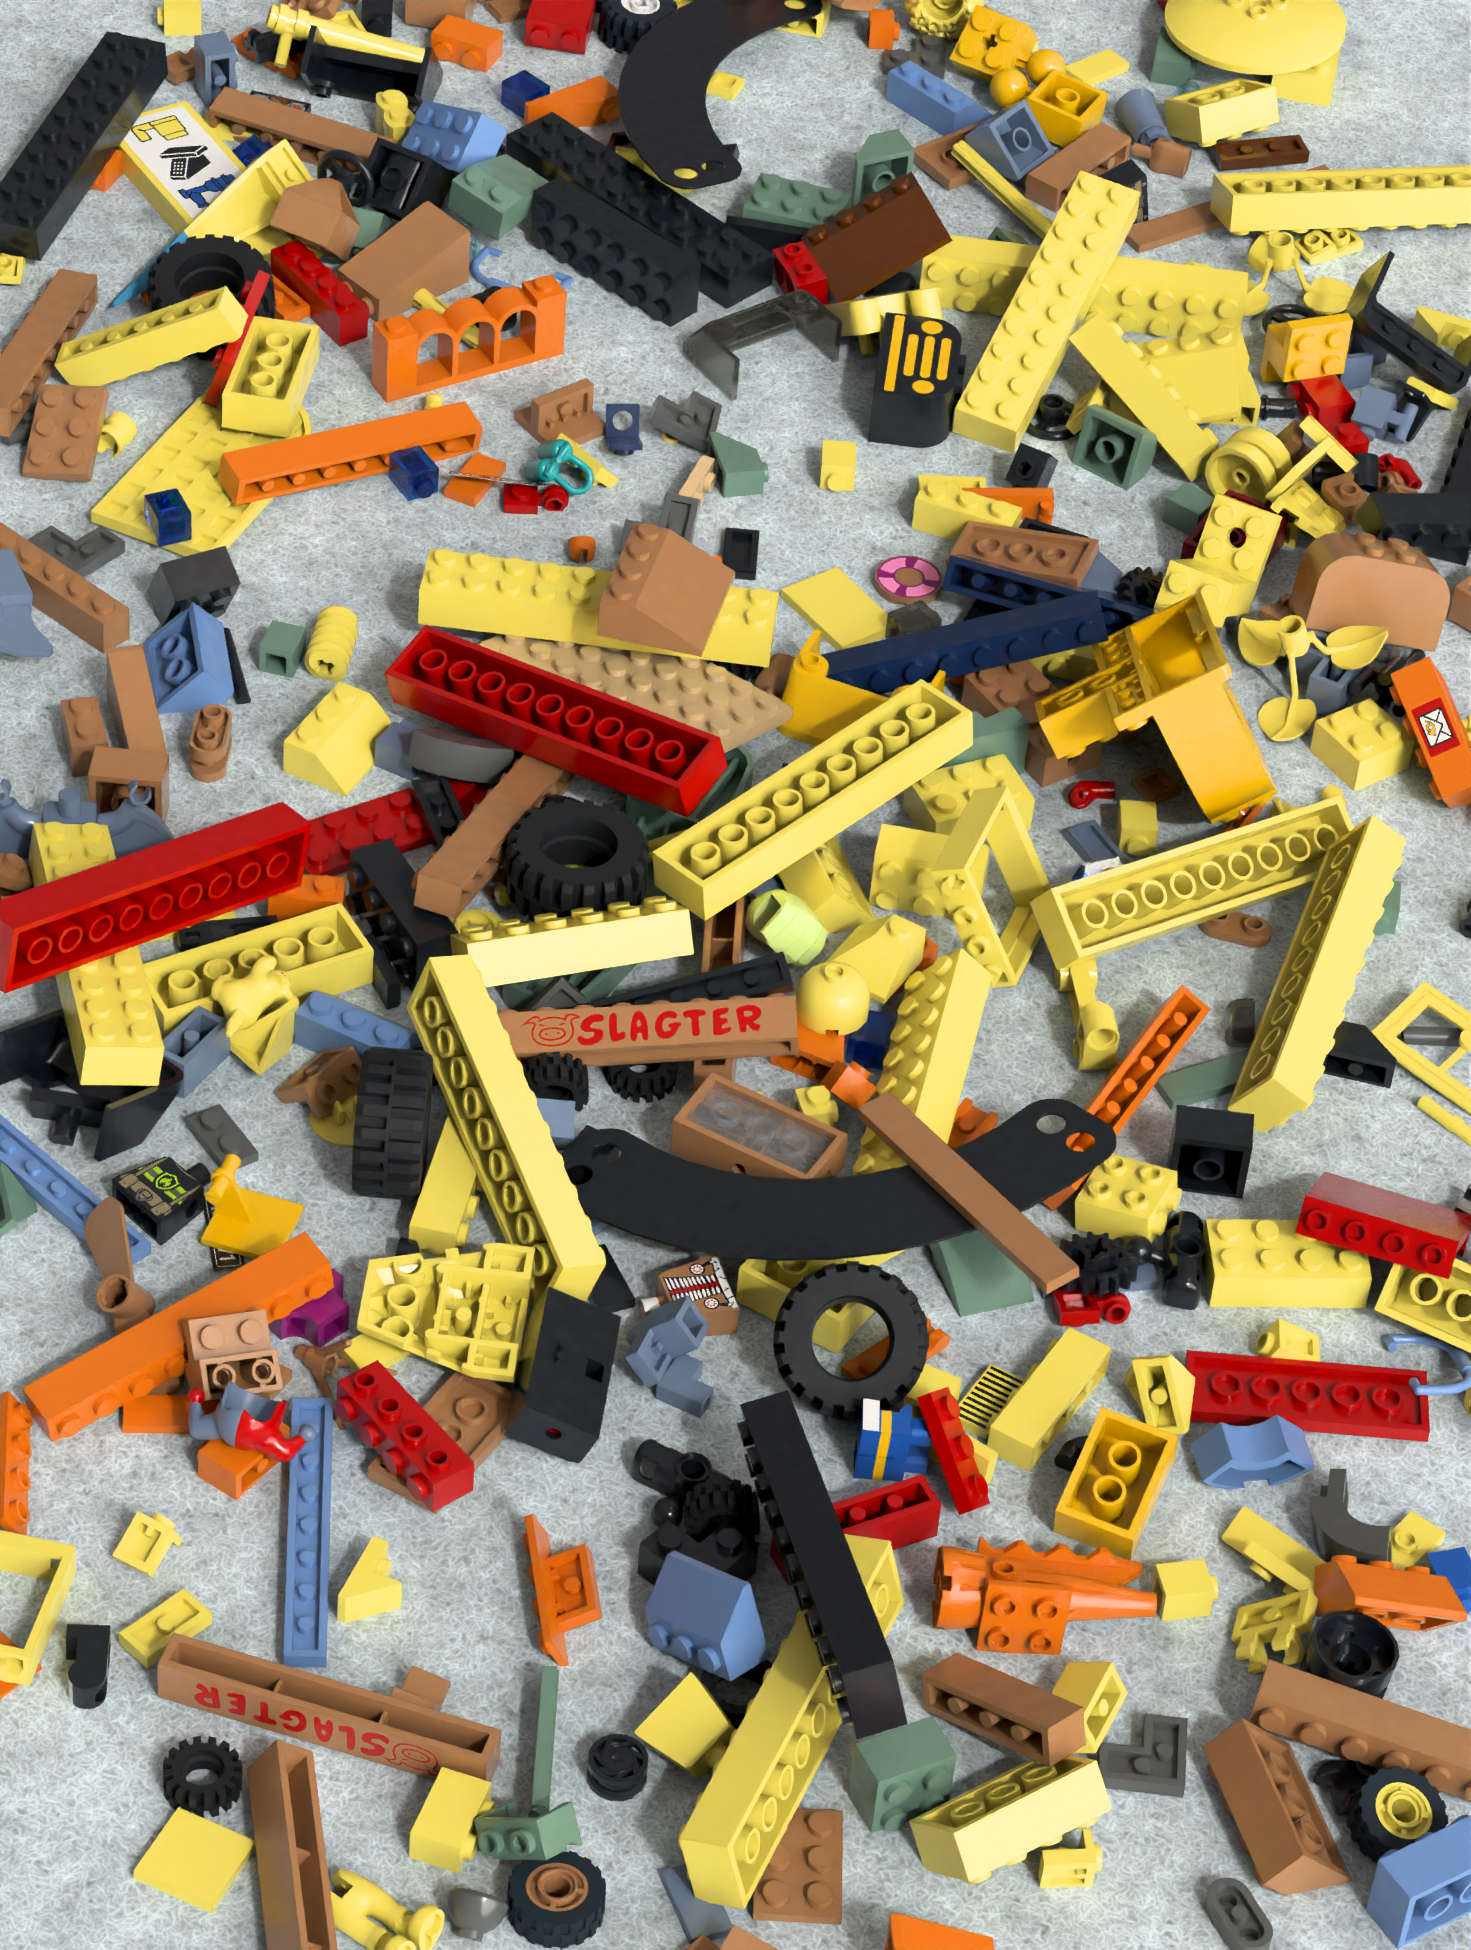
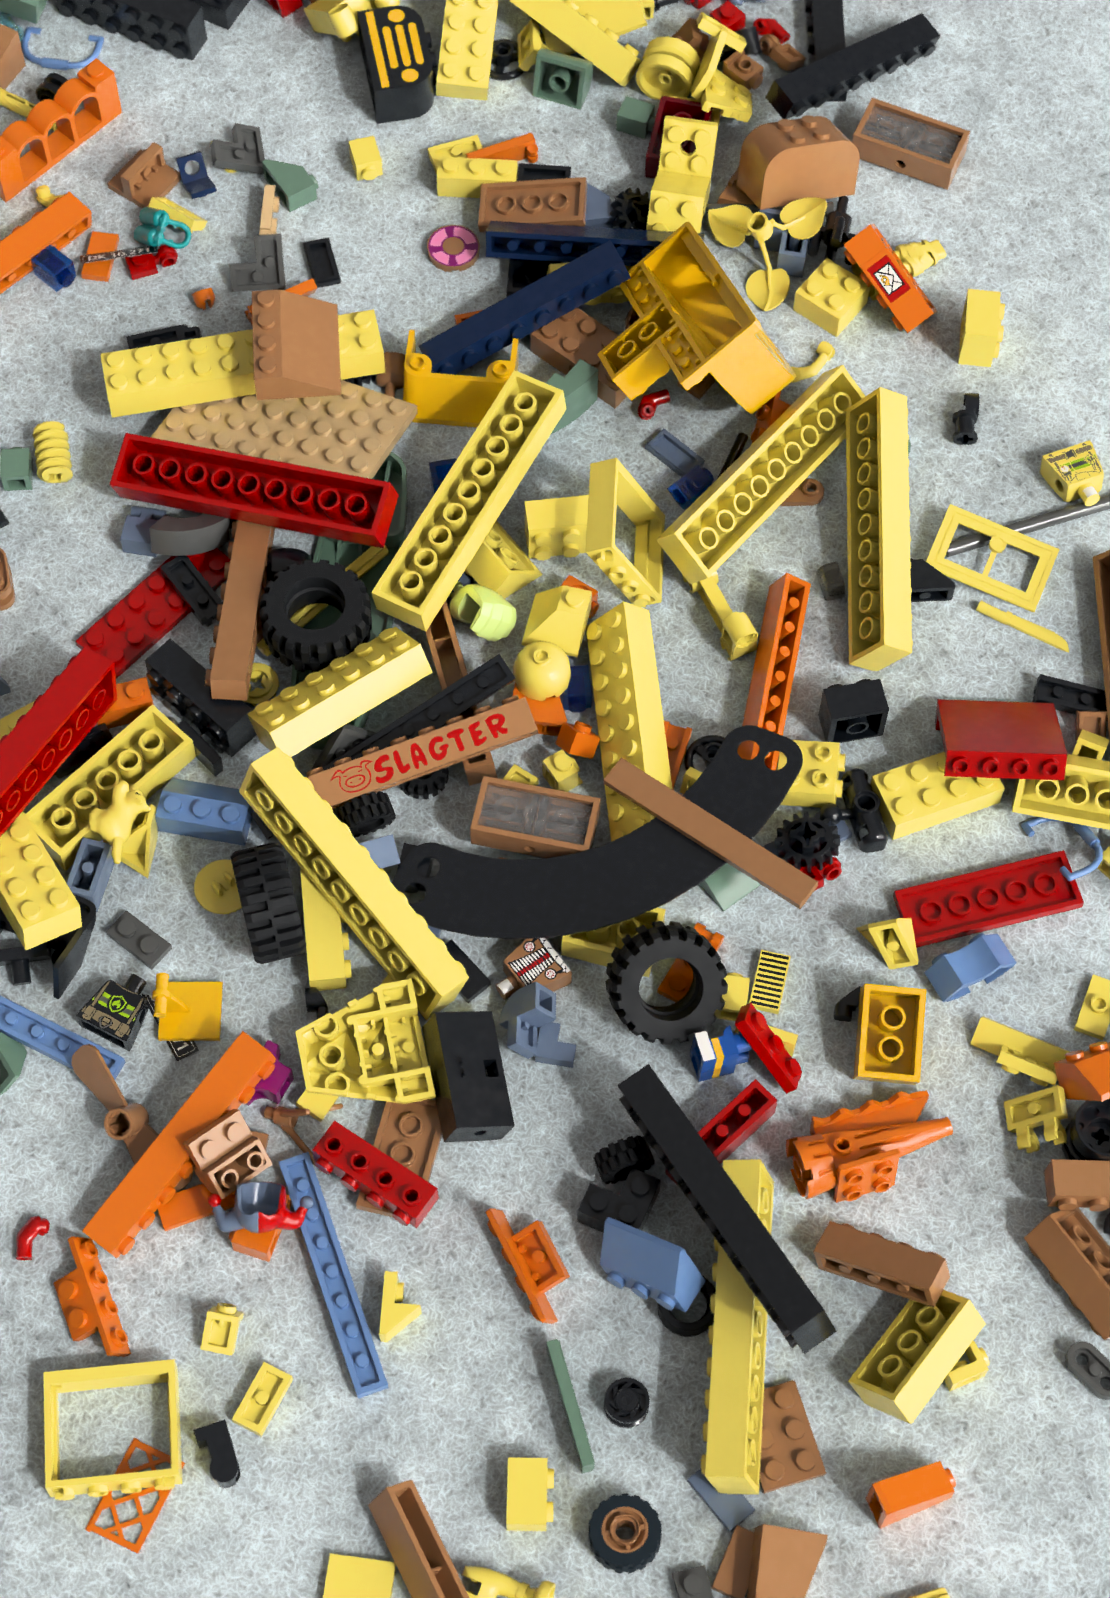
camera: 15 degrees left, 20 degrees up
(202, 1756) = (329, 1503): black tyre -> none
(324, 1080) = (195, 862): medium nougat bracket -> none
(324, 1711) = (407, 1437): medium nougat brick -> none
(336, 740) = (90, 542): light yellow slope -> none
(423, 1689) = (466, 1395): medium nougat bracket -> none
(475, 1912) = (573, 1567): dark grey brick -> none
(533, 1837) = (589, 1500): sand green window -> none
(673, 1478) = (571, 1124): black piece -> none
(688, 1728) = (671, 1358): light yellow torso -> none
(713, 345) = (232, 69): clear smoke windscreen -> none
(837, 609) = (412, 292): light yellow tile -> none
(901, 1774) = (829, 1357): sand green brick -> none
(911, 619) = (474, 293): clear smoke brick -> none
(942, 795) = (575, 443): light yellow brick -> none
(1031, 468) = (511, 110): black brick -> none
(1048, 1398) = (812, 969): light yellow brick -> none
(1098, 1691) = (931, 1226): light yellow brick -> none
(1137, 827) = (698, 427): light yellow brick -> none
(1155, 1766) = (994, 1262): dark grey plate -> none
(1184, 1589) = (963, 1102): light yellow brick -> none
(1201, 1080) = (823, 638): sand green tile -> none
(1288, 1342) = (960, 860): light yellow bracket -> none
(1340, 1533) = (1062, 1025): dark grey arch -> none

